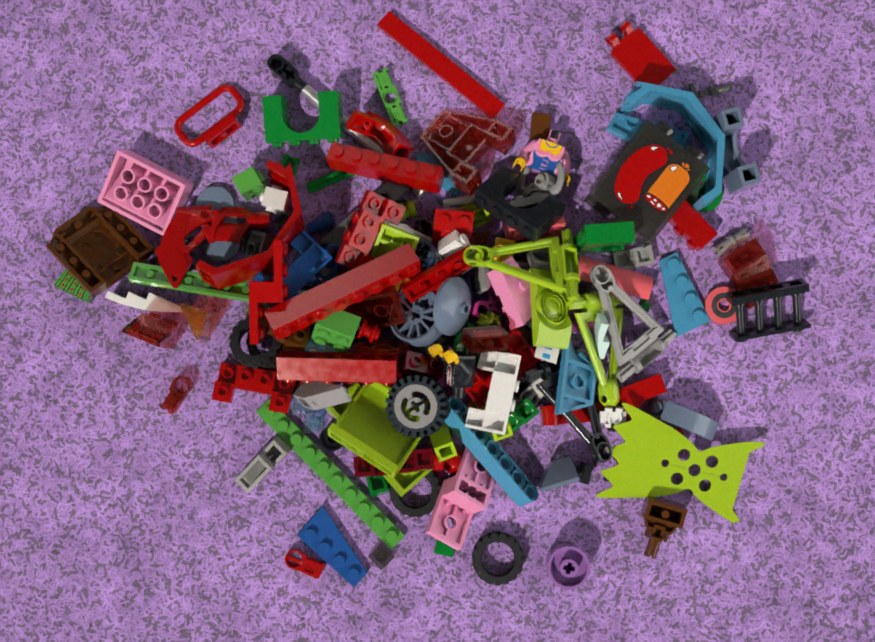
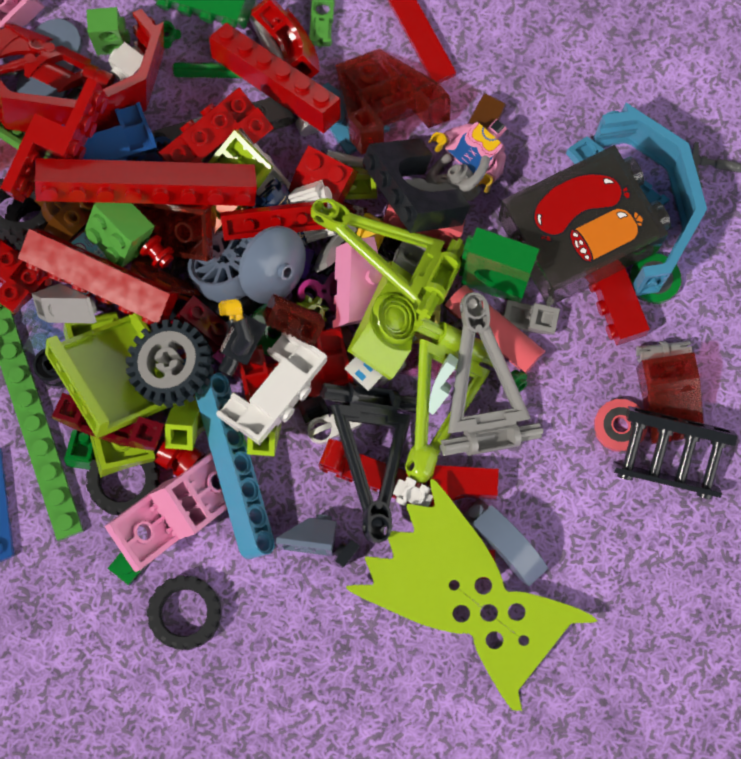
camera: 25 degrees right, 10 degrees down
(321, 223) = (169, 113): blue cone -> none
(381, 555) = (40, 542): clear smoke plate -> none
(410, 210) = (277, 142): lime wheel -> none
(422, 227) = (287, 168): black plate -> none
(523, 412) = (298, 444): green slope -> none
(572, 576) = (251, 656): medium lavender wheel -> none
(575, 382) = (382, 426): dark azure wing -> none
(639, 56) = (647, 84): red tile -> none
(661, 520) = (418, 657): reddish brown brick -> none
(683, 301) = (571, 397): dark azure wing -> none
(736, 174) = (708, 265): sand blue arch -> none

